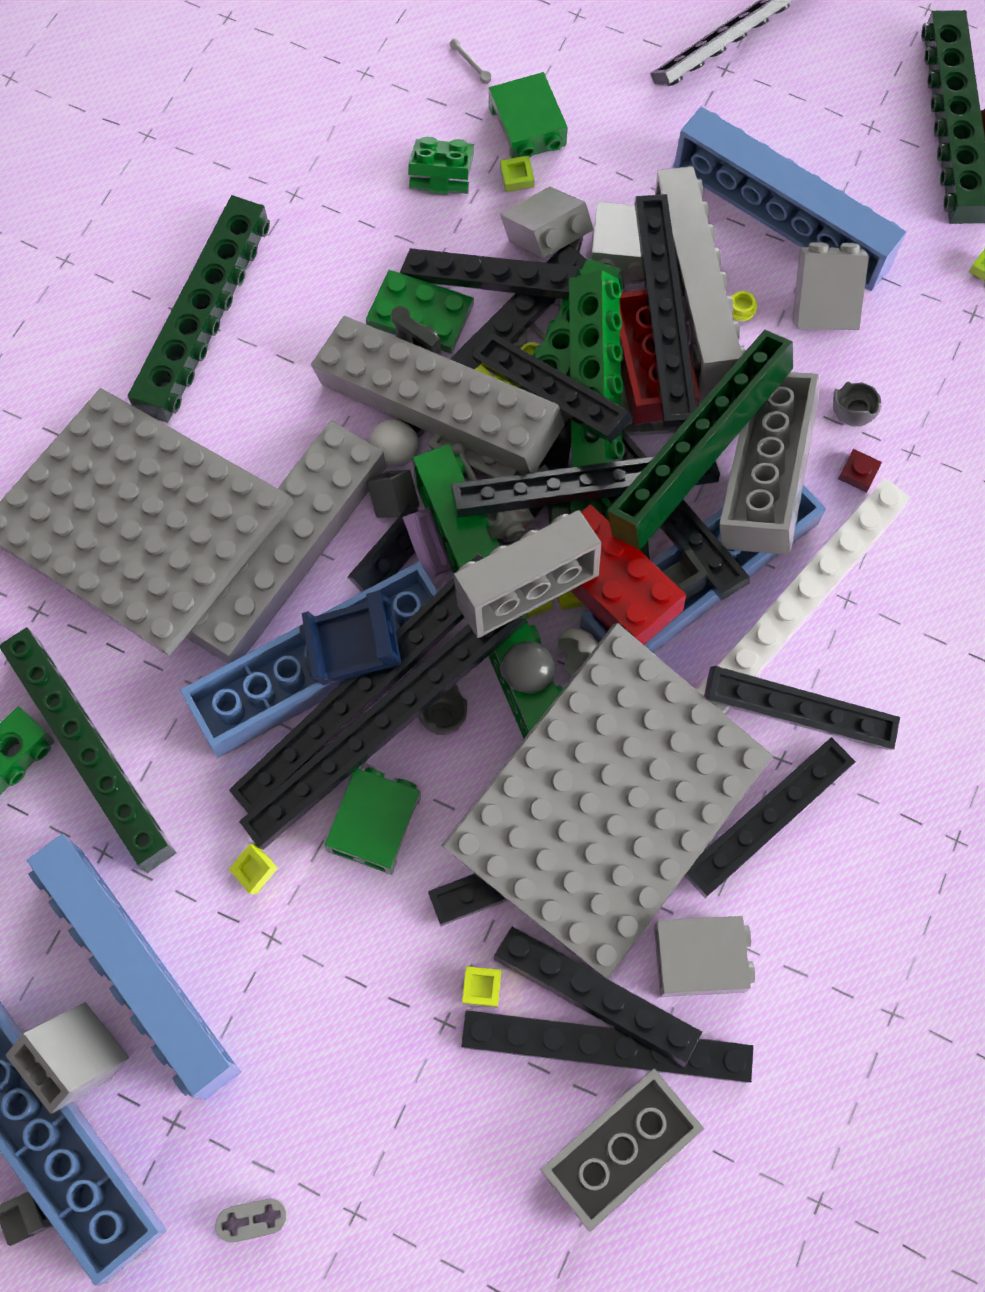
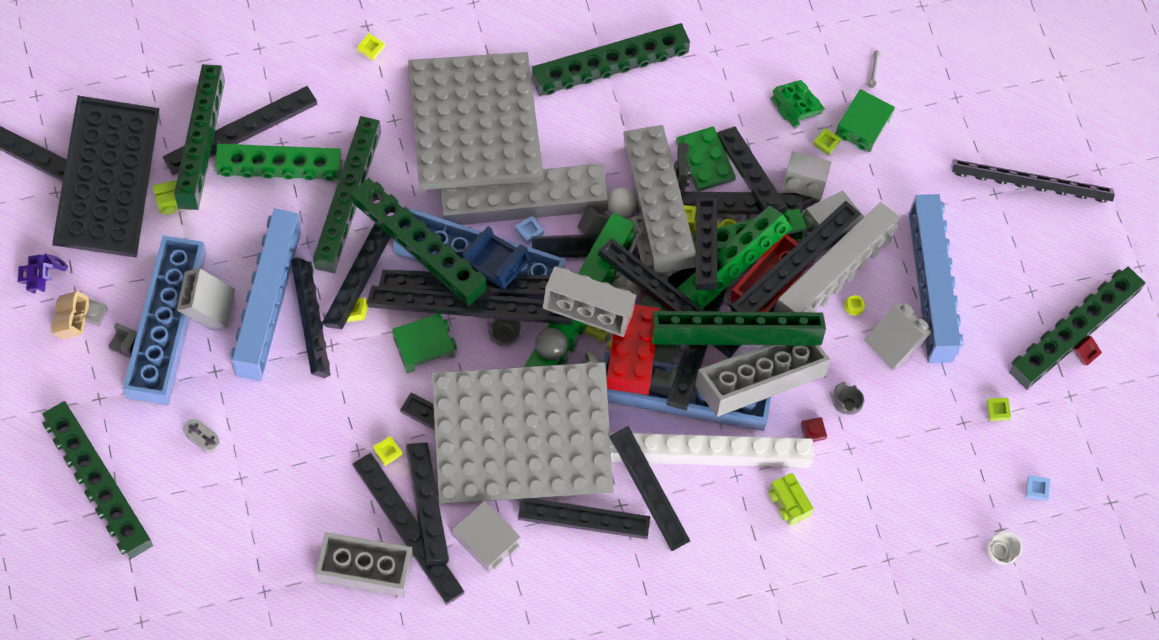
camera: 45 degrees right, 5 degrees down
(116, 717) = (466, 290): none -> dark green brick
(210, 827) = (356, 278): none -> black plate
(213, 935) = (310, 318): none -> black plate
(333, 573) = (529, 228): none -> light blue plate
(427, 542) = (579, 253): lavender tile -> none
(932, 563) = (790, 499): none -> lime brick

